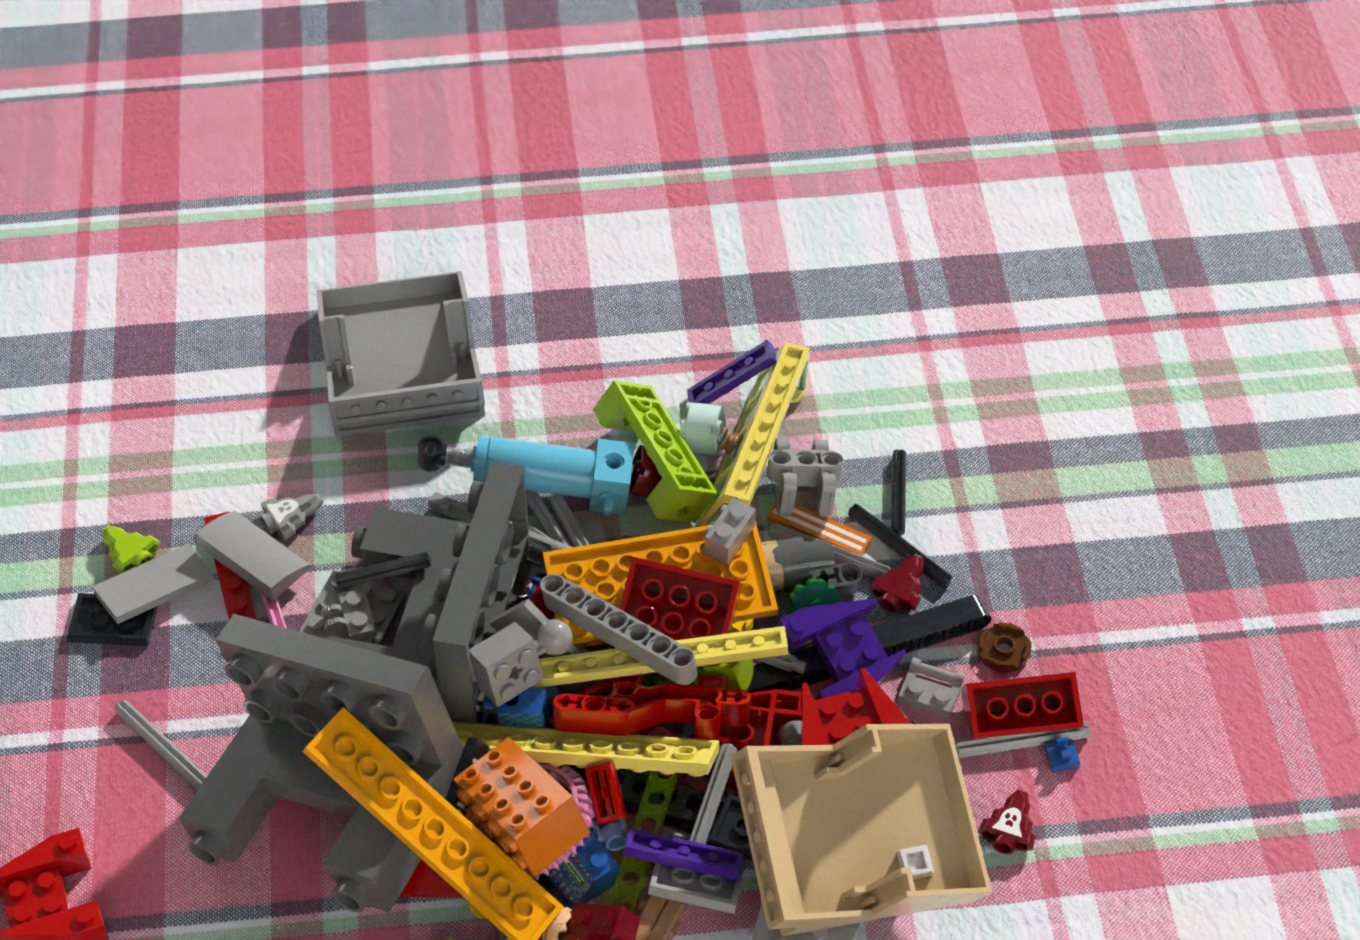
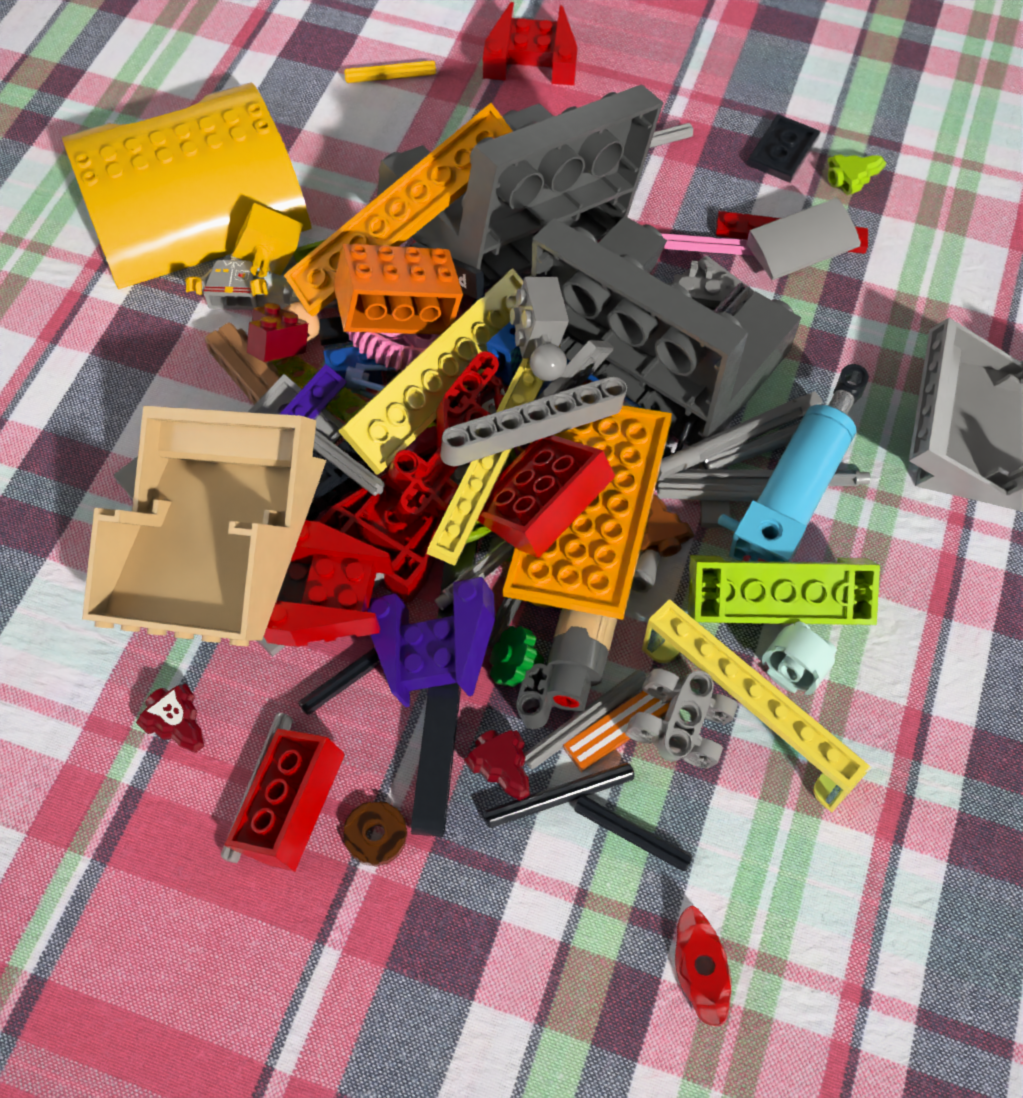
camera: 115 degrees right, 10 degrees up
(153, 583) = (803, 169): light grey tile -> none
(288, 514) = (845, 284): light grey rock -> none
(610, 792) = (383, 367): red tile -> none
(728, 442) = (766, 669): medium nougat bush -> none
(729, 531) = (607, 569): light grey brick -> none
(733, 374) = (860, 713): dark purple plate -> none
(917, 859) = (154, 569): white tile -> none
(928, 694) = (363, 724): light grey plate -> none
(952, 429) = (707, 993): none -> red piece
(1062, 755) = (217, 815): blue tile -> none

